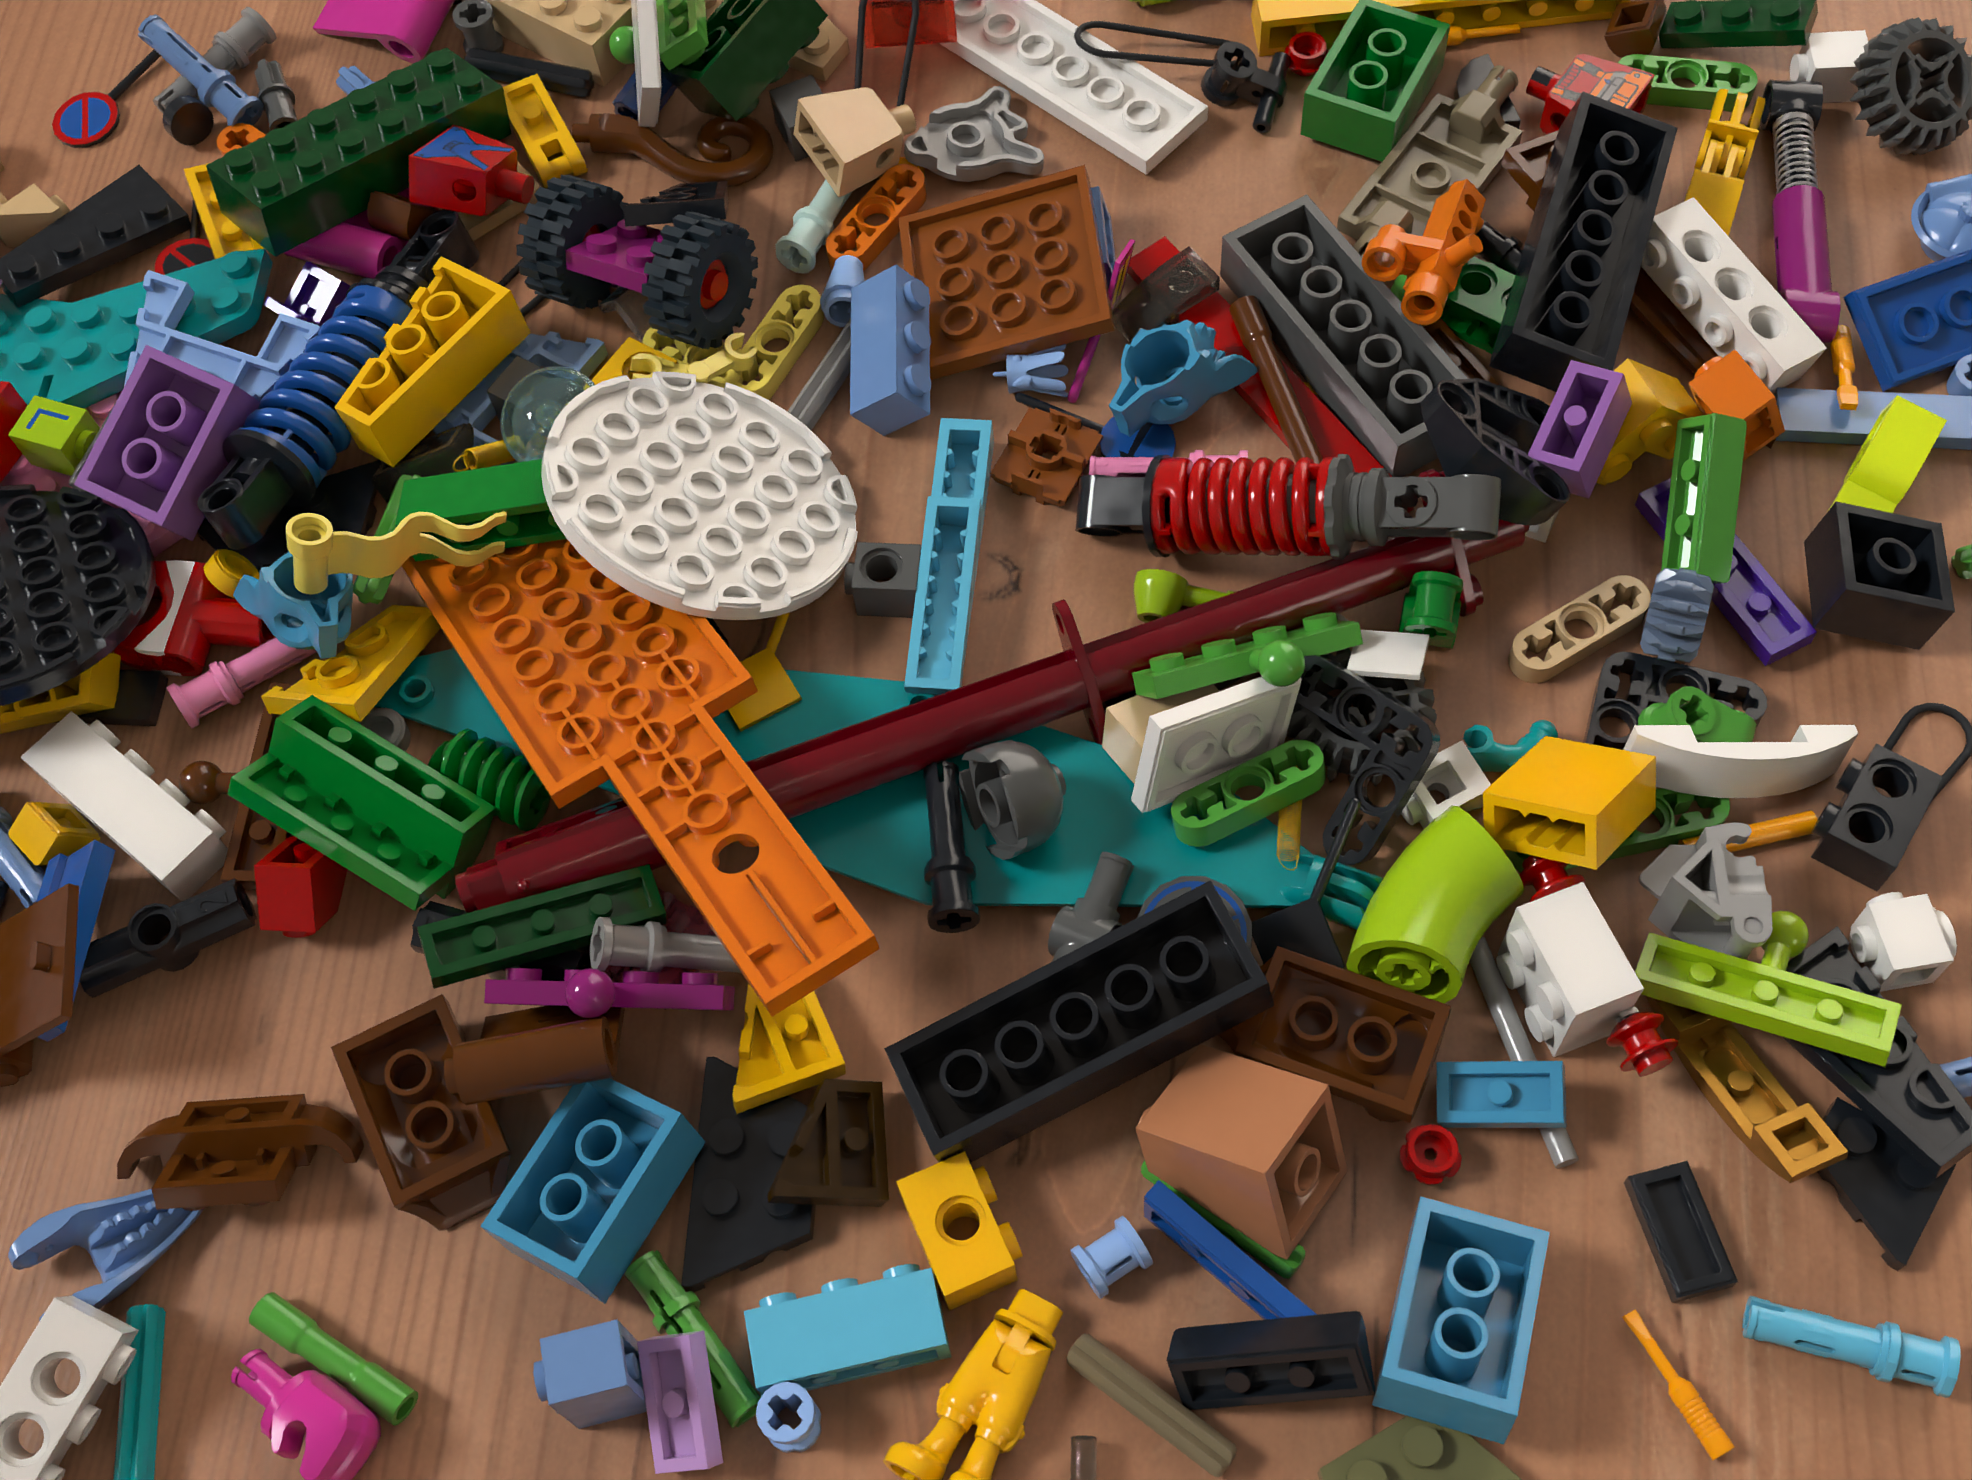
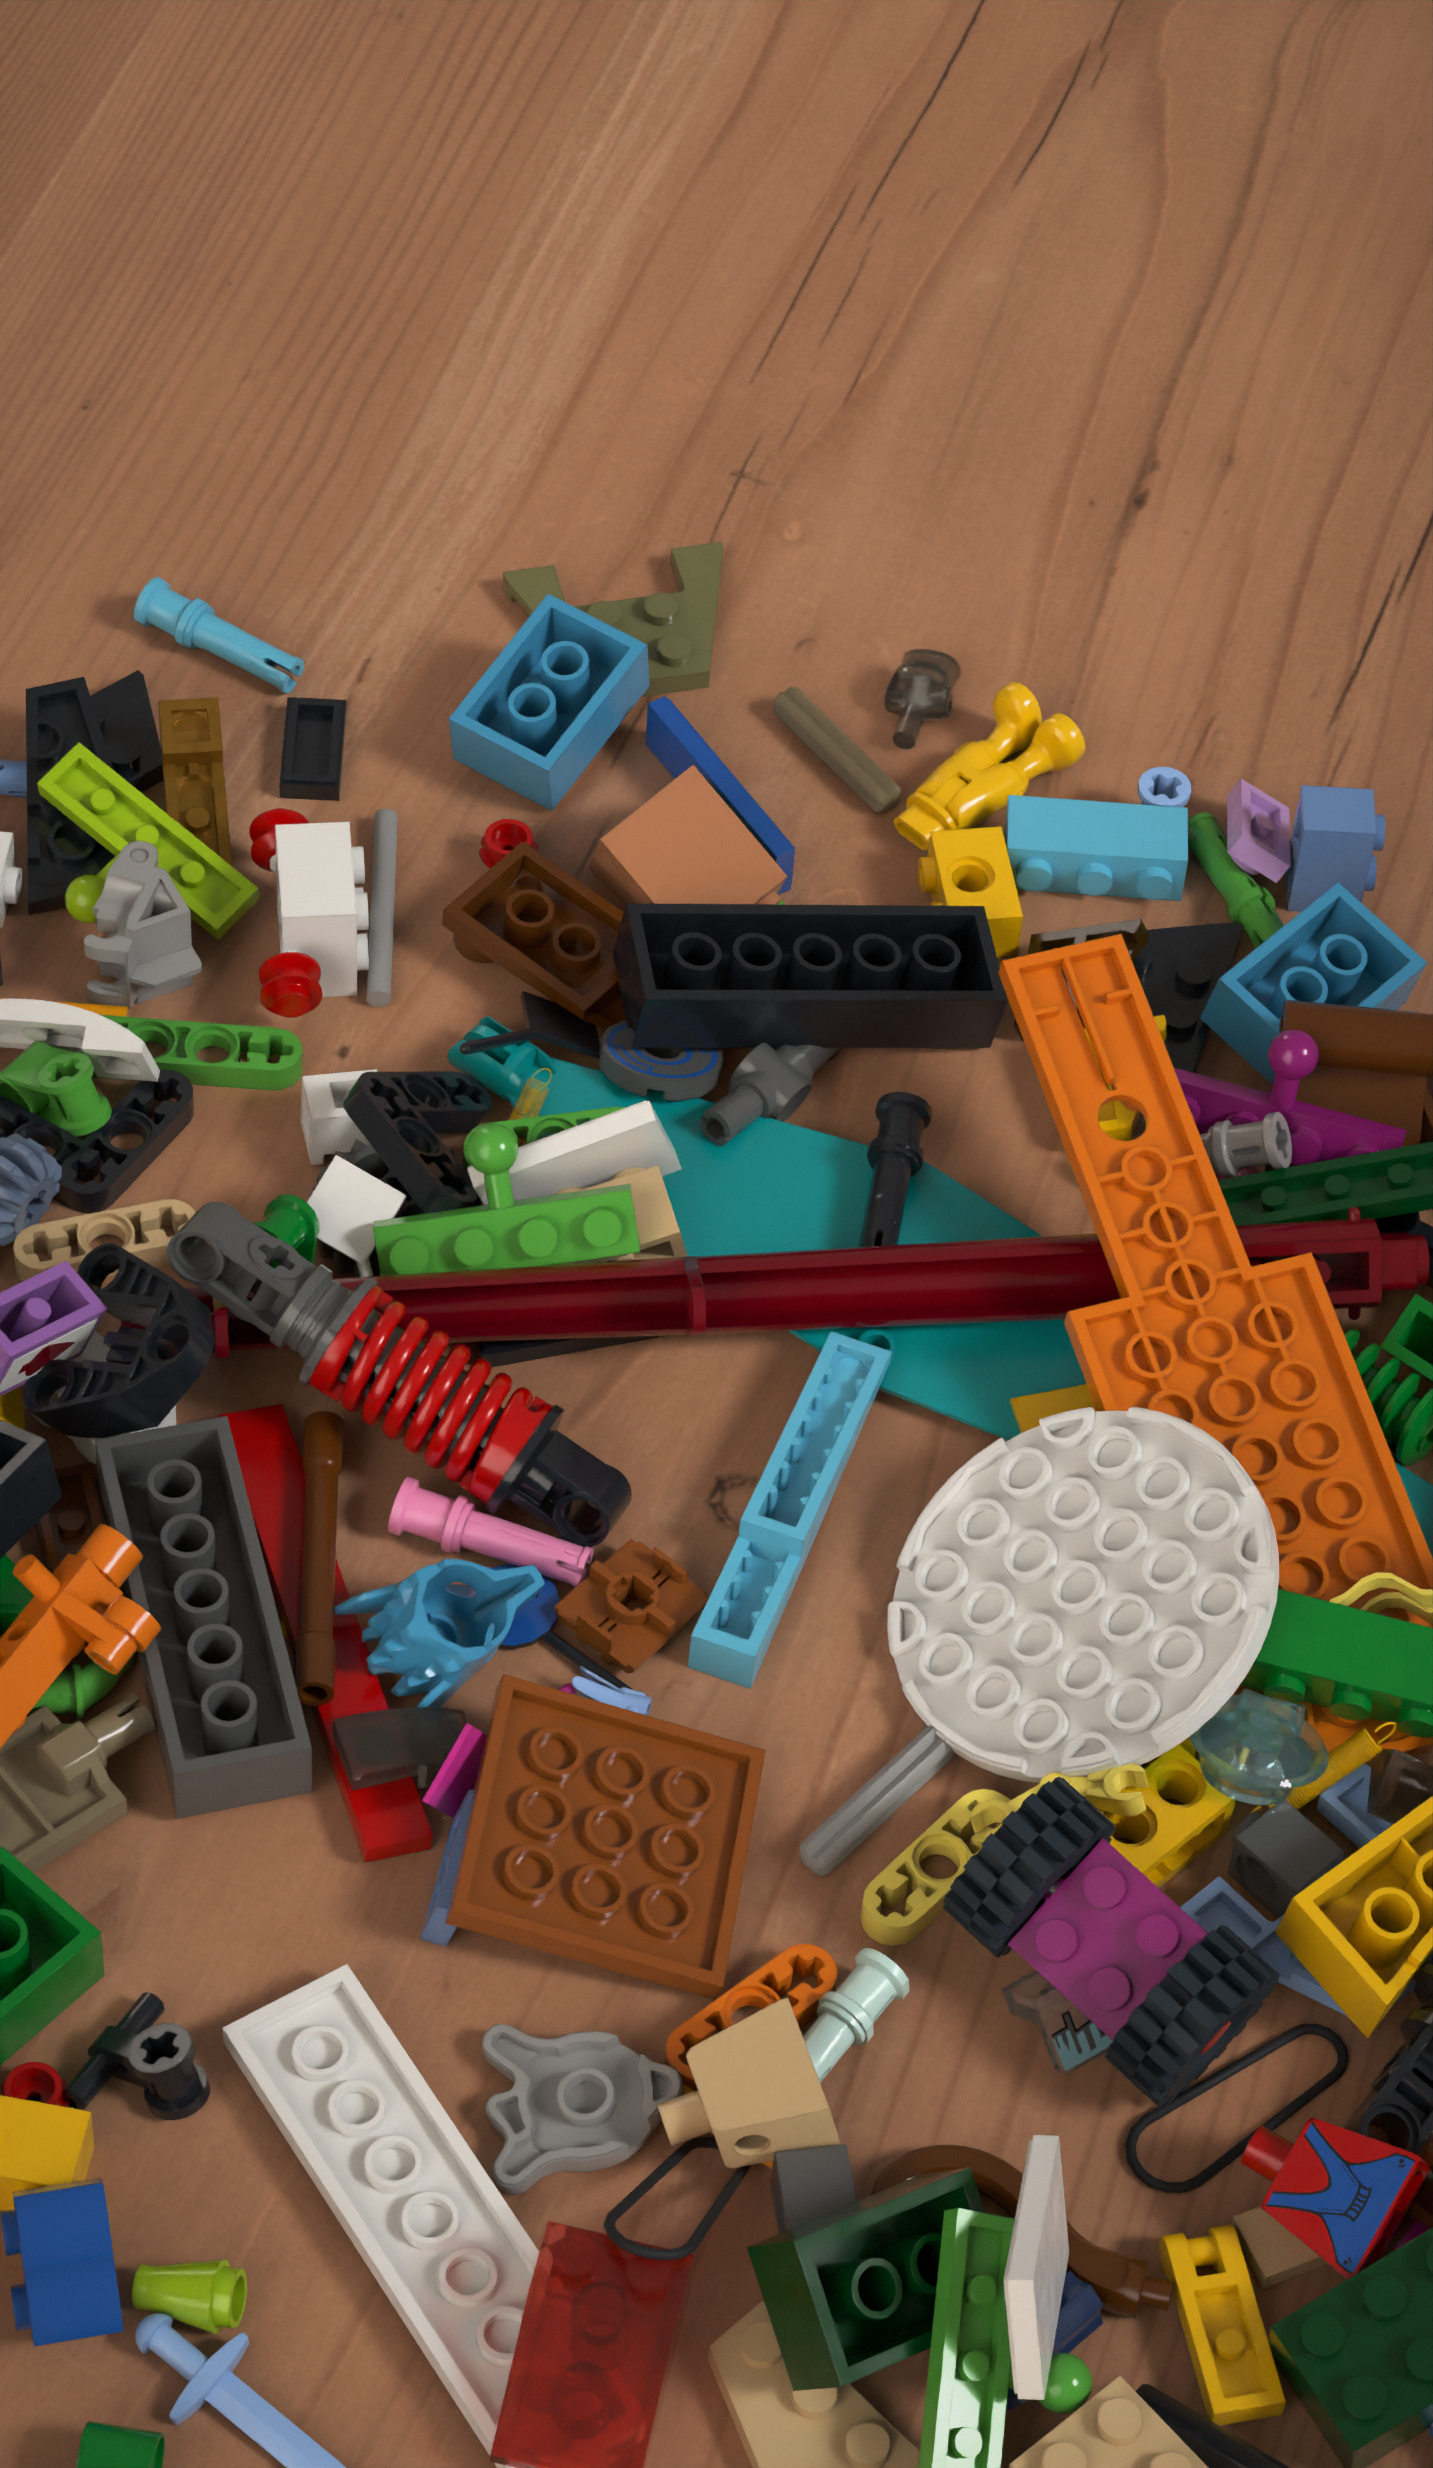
camera: 175 degrees left, 10 degrees down
(697, 197) = (1020, 2030): black wing -> none
(837, 292) = (826, 1900): light blue cone -> none
(881, 561) = (868, 1476): dark grey brick -> none
(890, 351) = (792, 1764): medium blue brick -> none
(1013, 794) = (803, 1188): dark grey cylinder -> none
(1111, 1256) = (836, 844): light blue bush -> none
(1146, 31) = (248, 2134): black piece -> none
(1164, 592) = (565, 1385): lime bar -> none
(1272, 1361) = (726, 724): black slope -> none
(1435, 908) = (417, 992): lime brick -> none
(1500, 757) = (236, 1135): teal piece -> none
(1501, 1094) = (423, 855): dark azure plate -> none
(1570, 801) = (236, 1023): yellow brick -> none
(1683, 1394) = (375, 648): light orange piece -> none

